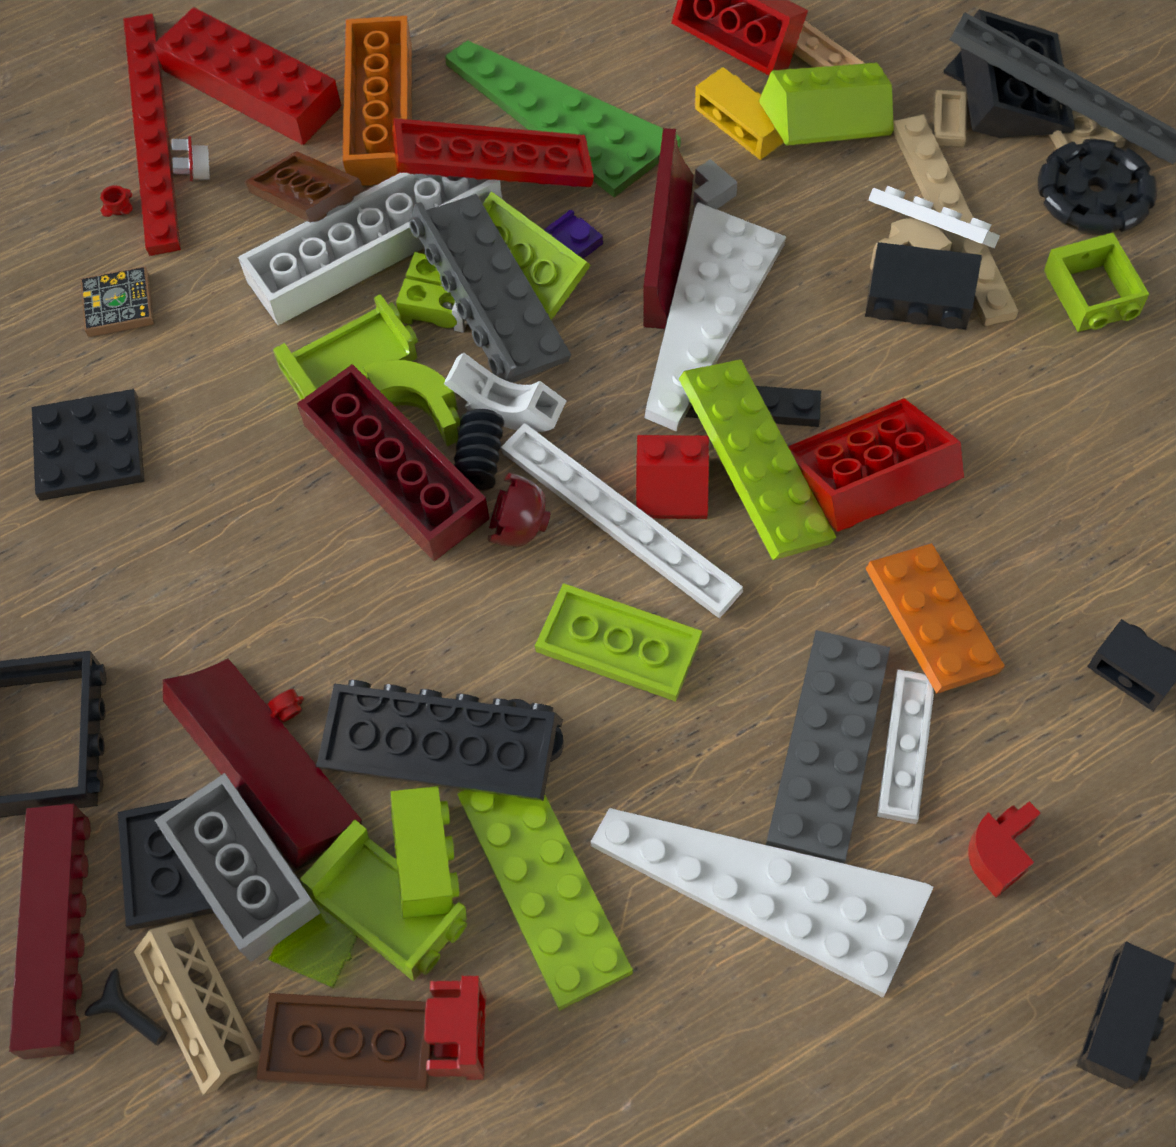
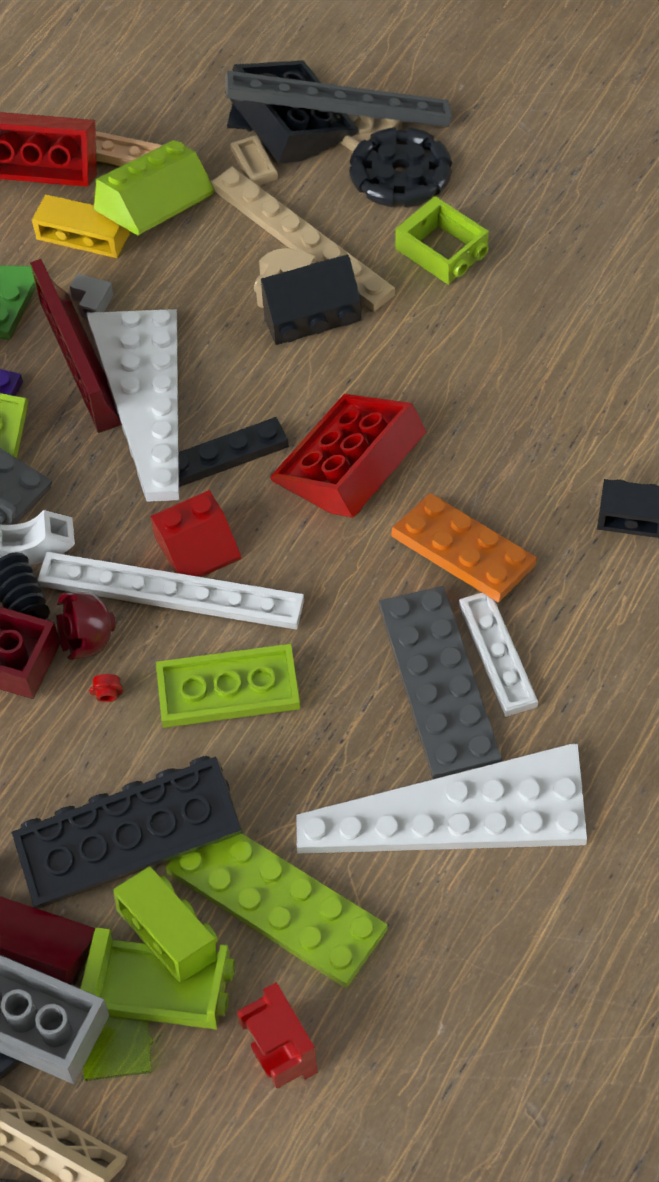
camera: 30 degrees left, 5 degrees down
(344, 1042) = (191, 1103): reddish brown plate -> none
(504, 585) = (106, 687): none -> red plate
(757, 459) = (257, 490): lime plate -> none
(947, 219) = (301, 240): white plate -> none
(995, 854) = (608, 695): red brick -> none

